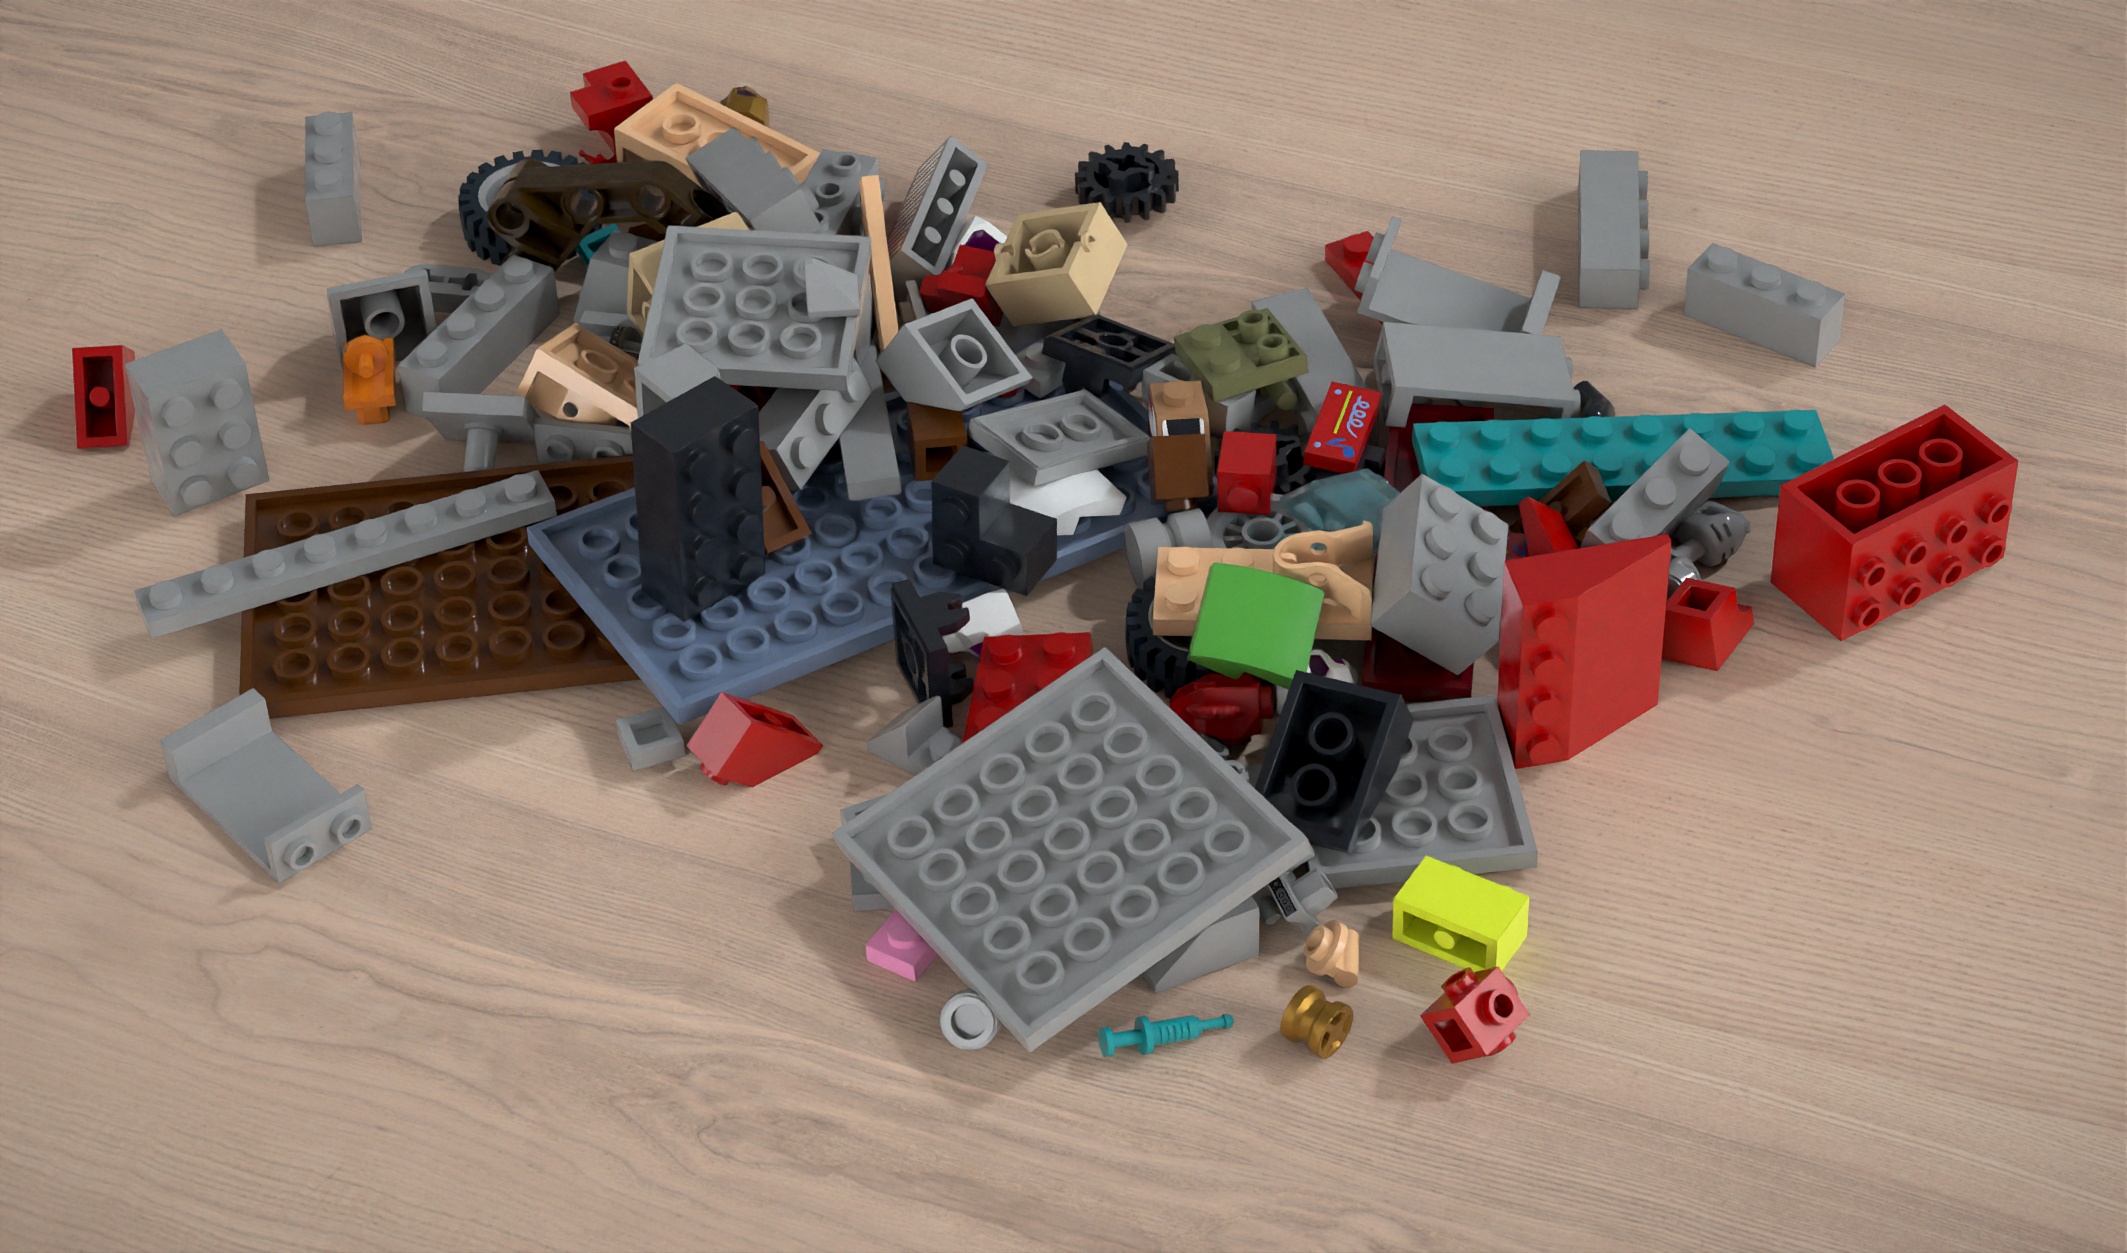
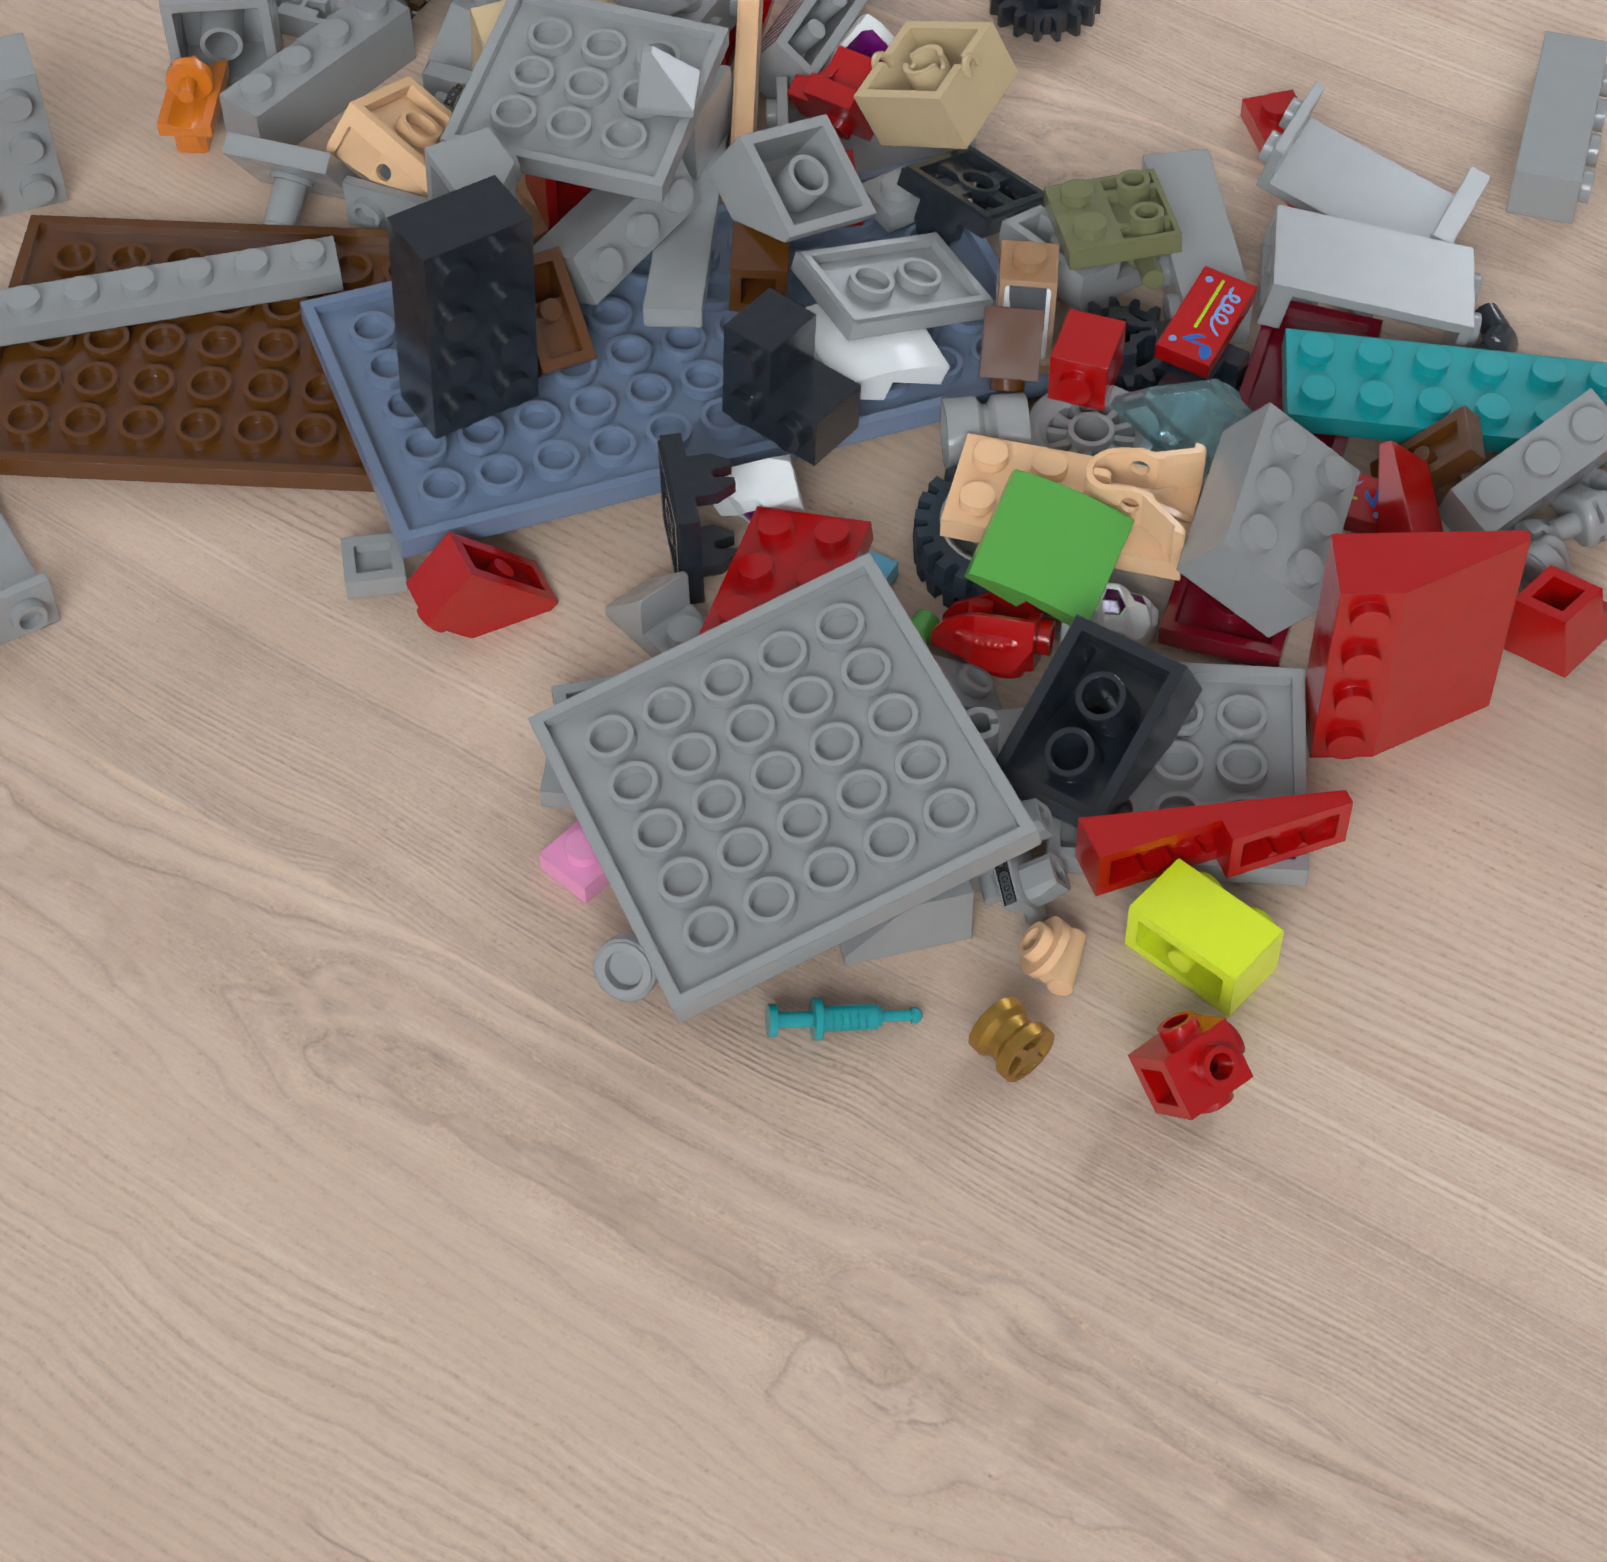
camera: 10 degrees right, 10 degrees up
(1471, 828) = (1238, 834): none -> red slope

